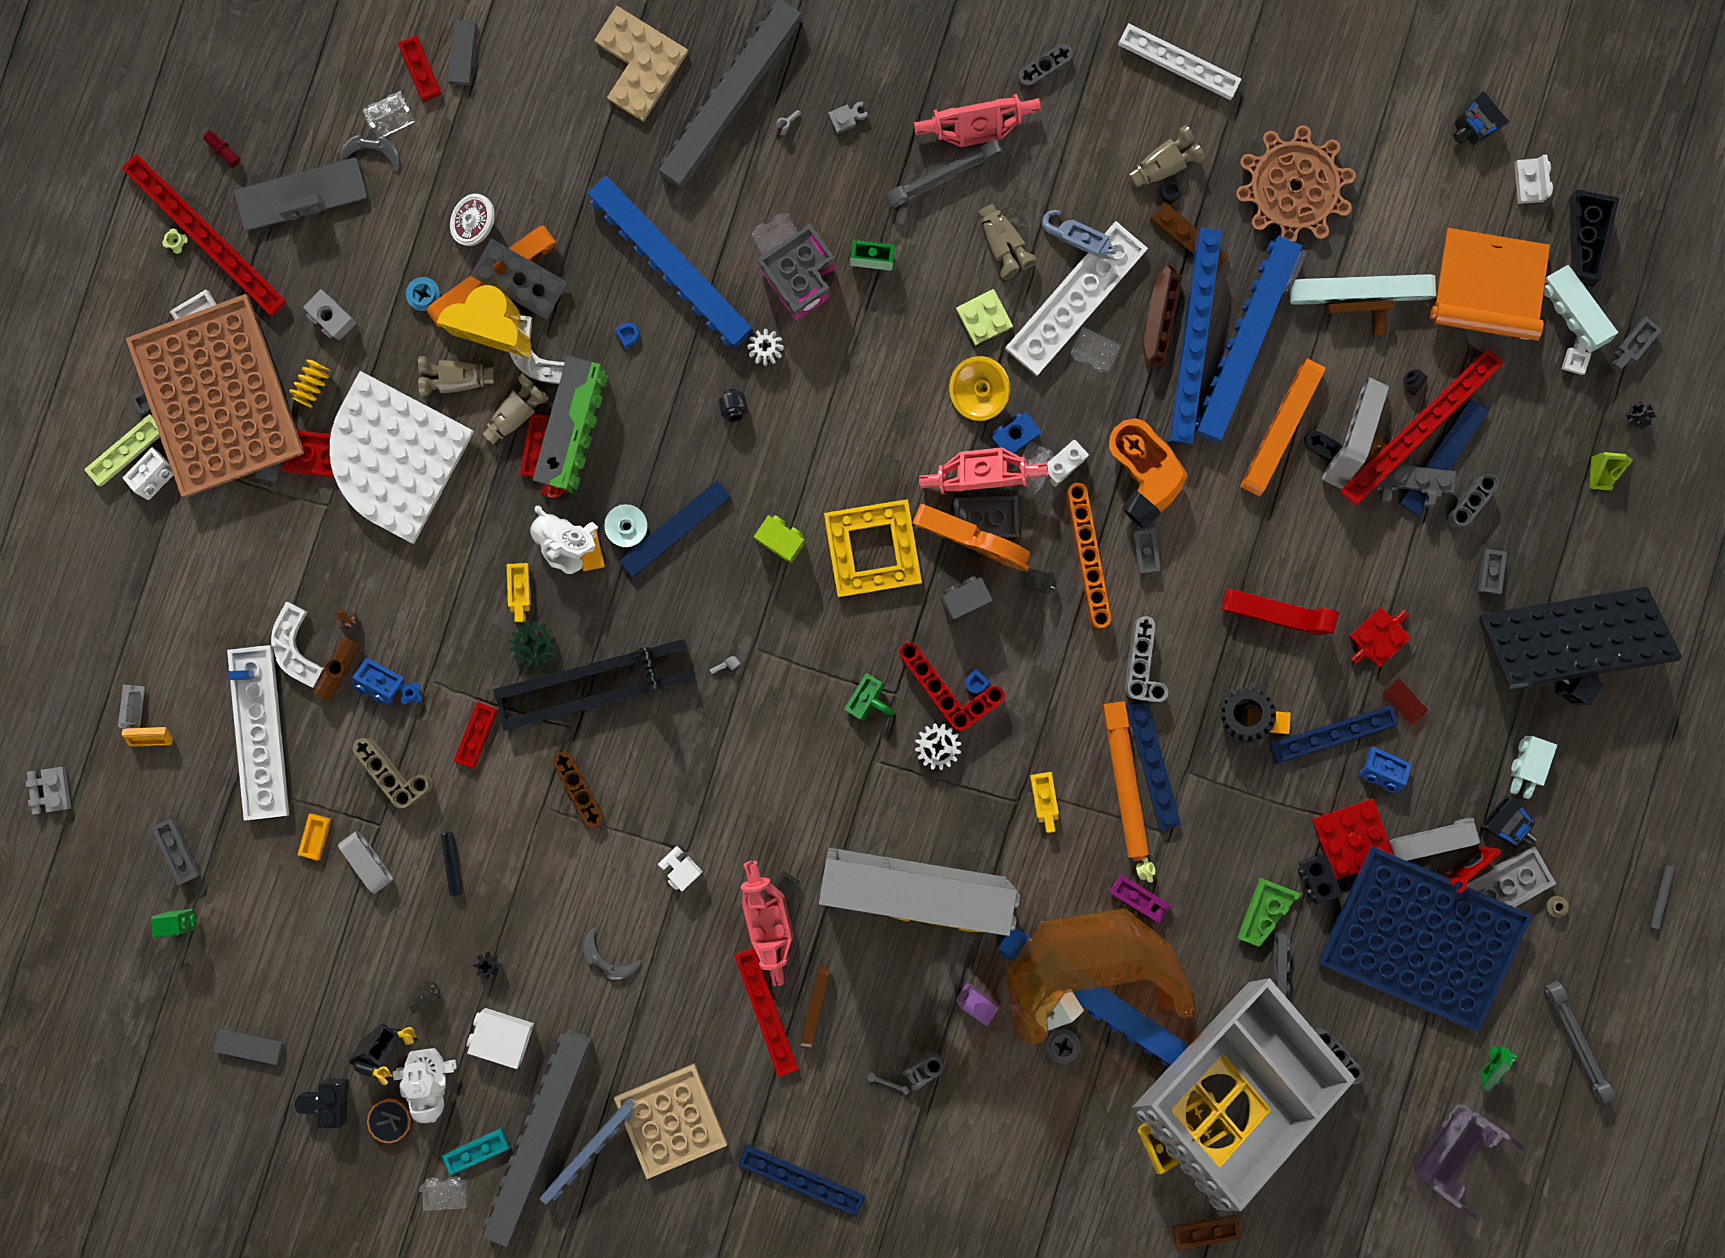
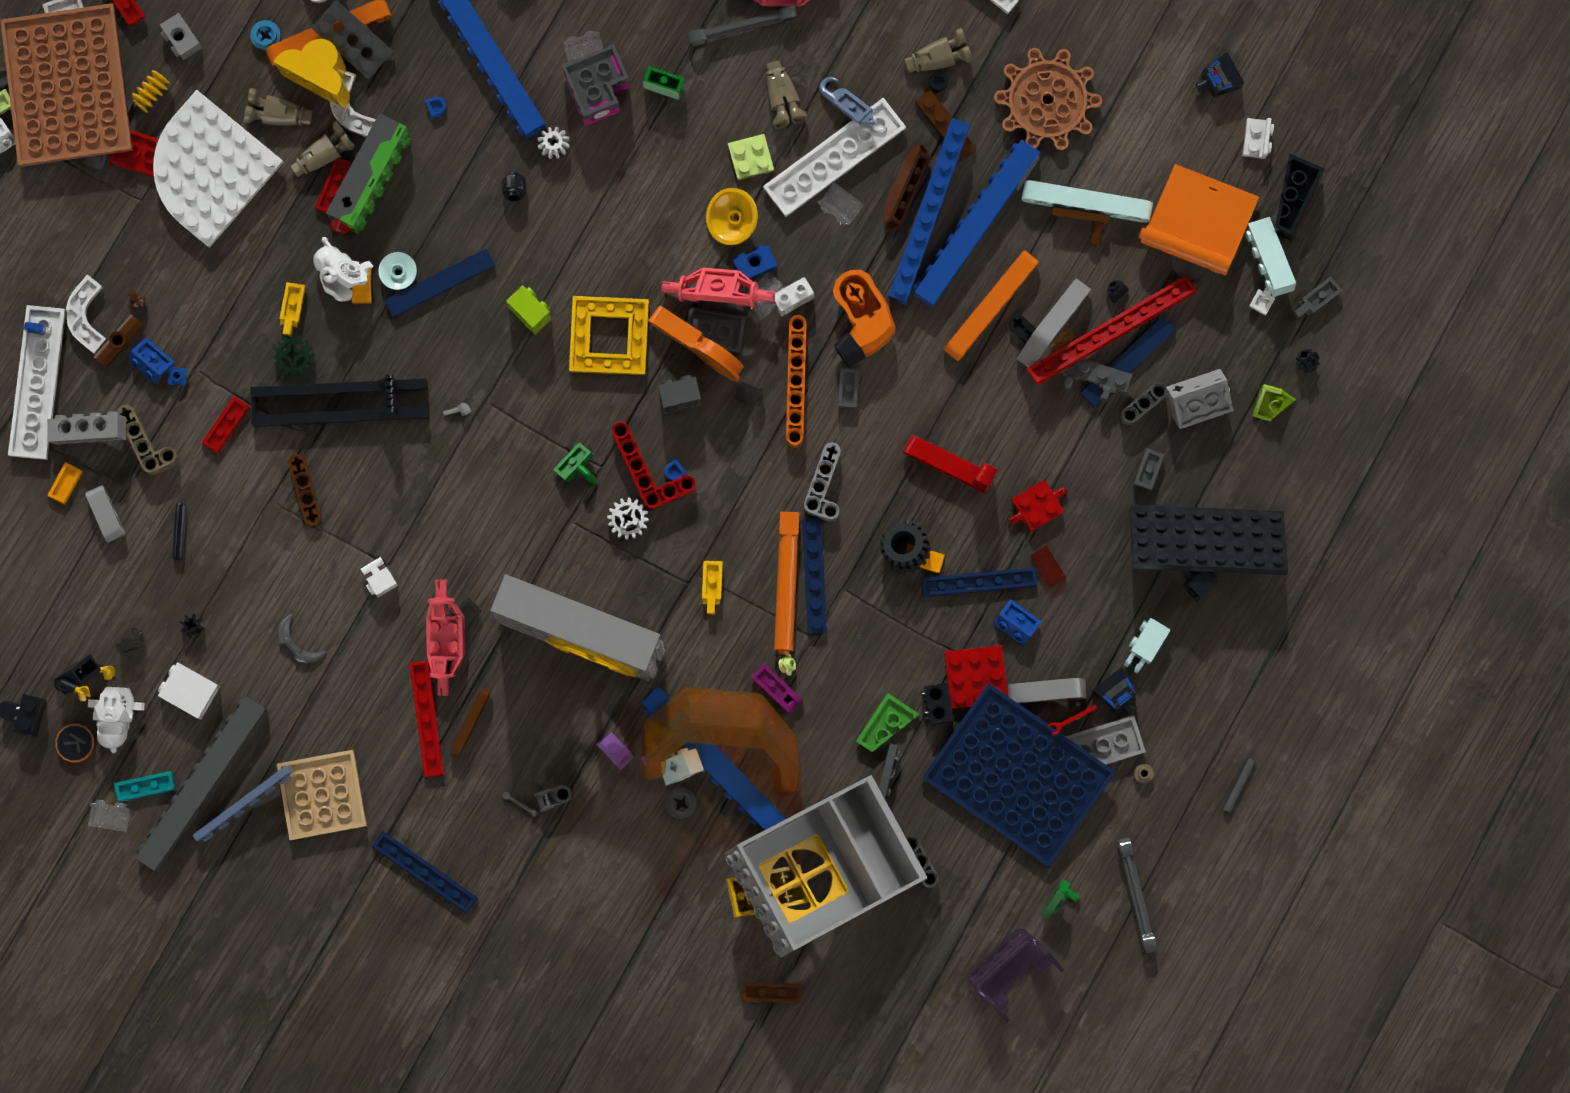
camera: 10 degrees right, 5 degrees down
(293, 781) = (58, 428): none -> light grey brick
(1535, 483) = (1199, 399): none -> light grey piece

